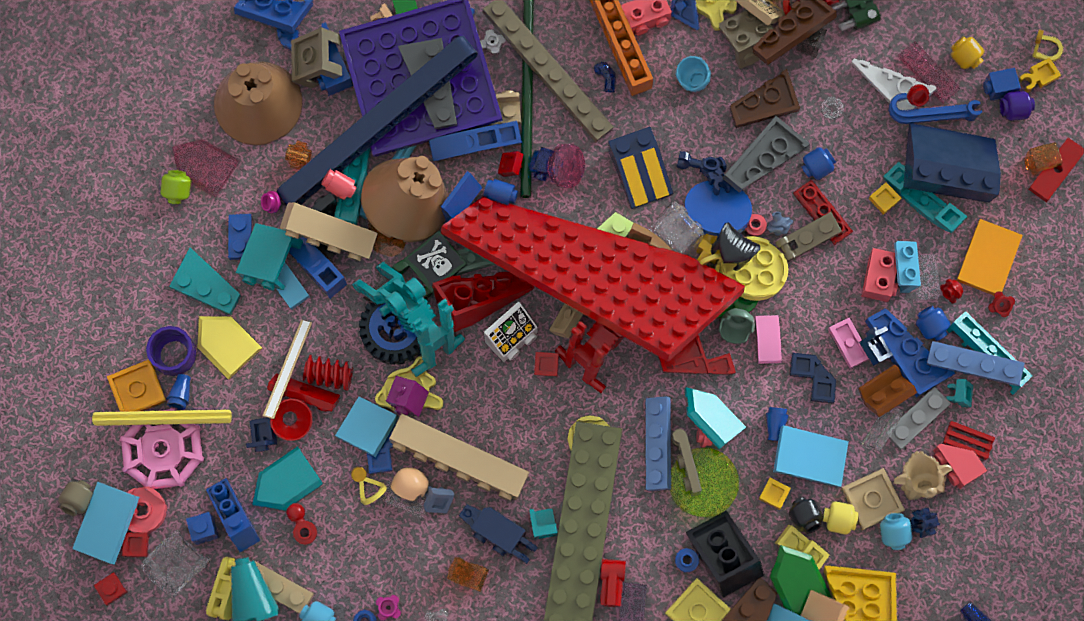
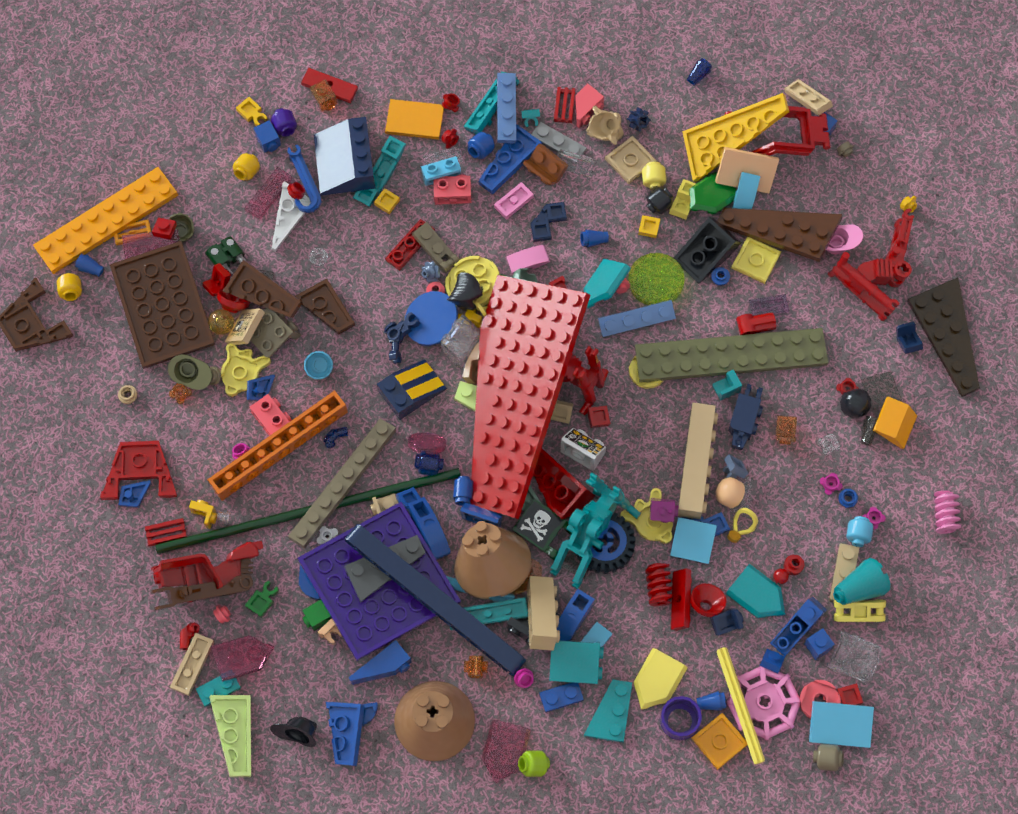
camera: 105 degrees left, 5 degrees down
(110, 588) = (891, 706): red plate -> none
(202, 471) = (772, 661): none -> blue plate
(287, 369) = (667, 615): sticker -> none
(311, 57) = (385, 676): dark tan panel -> none
(339, 184) = (497, 617): coral brick -> none
(510, 164) = (435, 490): red plate -> none
(686, 461) = (647, 290): dark tan plate -> none
(767, 152) = (372, 294): dark grey wing -> none
(810, 456) = (613, 207): medium azure tile -> none
(818, 163) = (371, 254): blue head -> none
(875, 346) = (514, 178): dark blue bracket -> none
(896, 531) = (651, 136): medium azure head -> none
(1042, 57) = (223, 115): light yellow piece -> none

